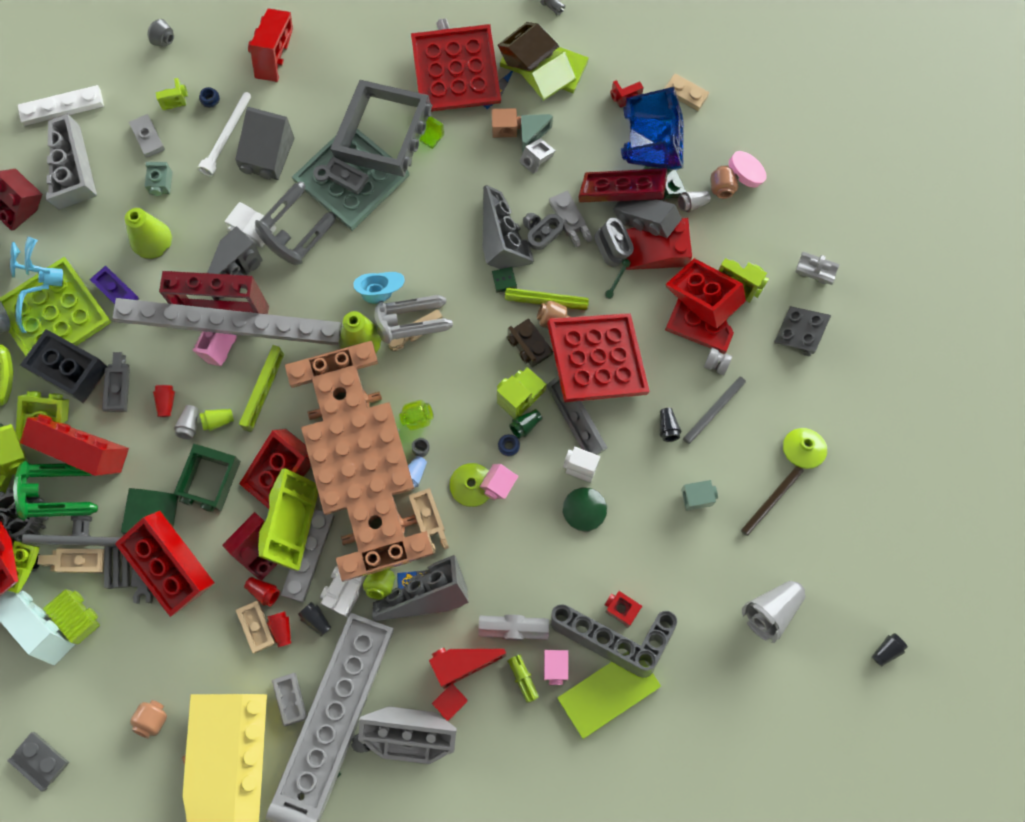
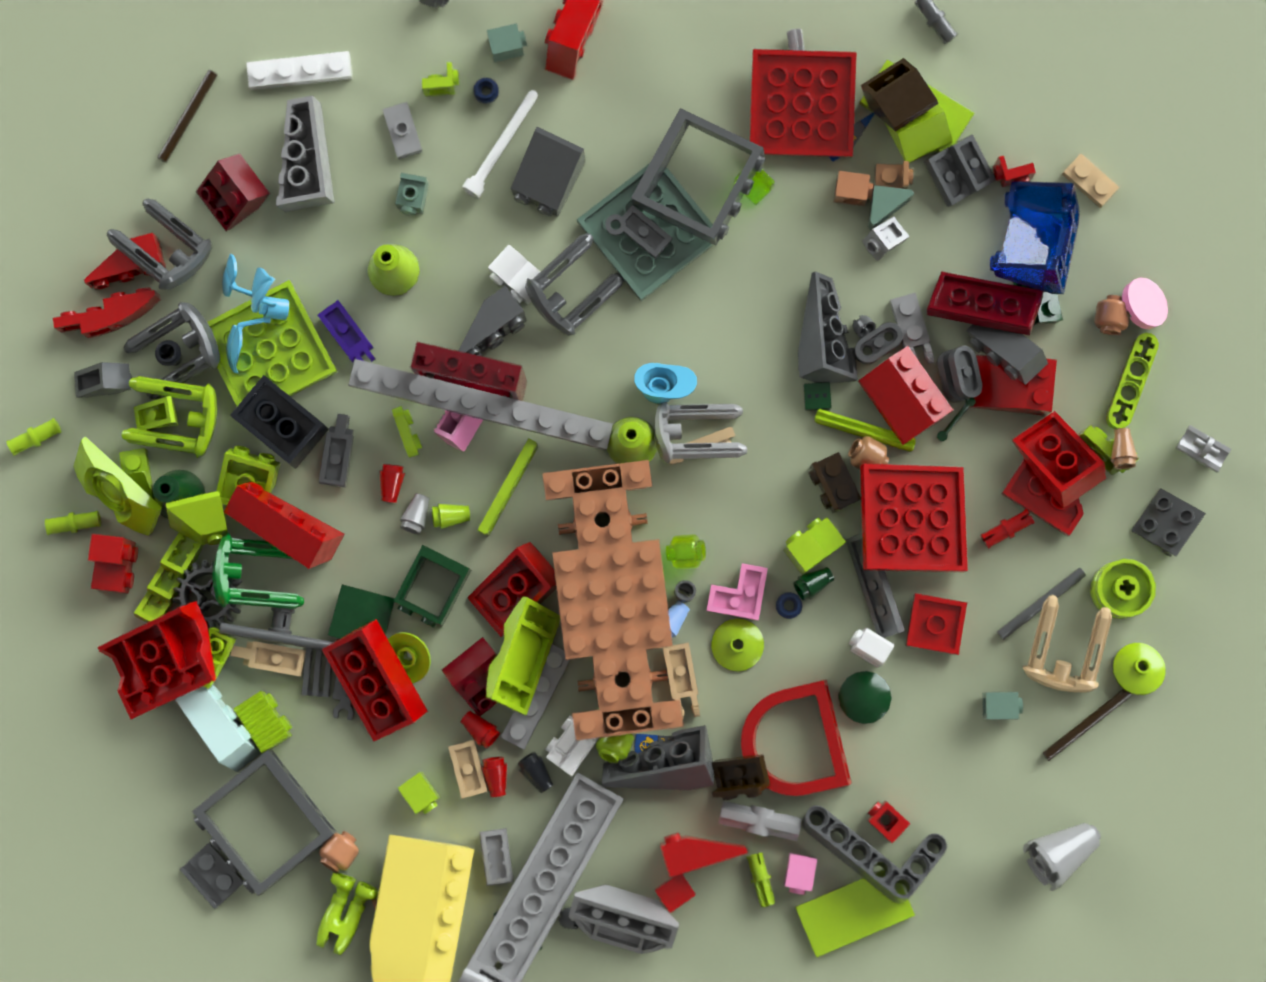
camera: 15 degrees right, 10 degrees up
(102, 669) = (300, 797): none -> dark grey window
(148, 783) = (332, 917): none -> lime piece
(177, 365) = (403, 421): none -> lime plate
(191, 527) = (420, 663): none -> lime dish
(215, 655) = (419, 794): none -> lime brick
(220, 60) = (506, 42): none -> sand green brick
(470, 447) = (744, 600): none -> bright pink plate
(490, 590) = (740, 776): none -> dark brown bracket
(498, 482) = (769, 650): bright pink brick -> none
(505, 526) = (831, 728): none -> red window
(536, 108) = (894, 175): none -> medium nougat bracket
(574, 265) = (905, 395): none -> red slope
(585, 98) = (959, 170): none -> dark grey slope
(632, 439) = (936, 624): none -> red plate
(669, 427) = (982, 614): black cone -> none
(675, 355) = (1007, 528): none -> red pin
(692, 200) = (1069, 331): light grey cone -> none
(712, 361) = (1057, 546): light grey wheel -> none
(742, 465) = (1060, 677): none -> tan piece
(750, 229) = (1135, 382): none -> lime beam
(756, 271) = (1123, 451): none -> medium nougat cone
(778, 385) = (1138, 585): none -> lime wheel
(889, 650) = (1183, 920): black cone -> none

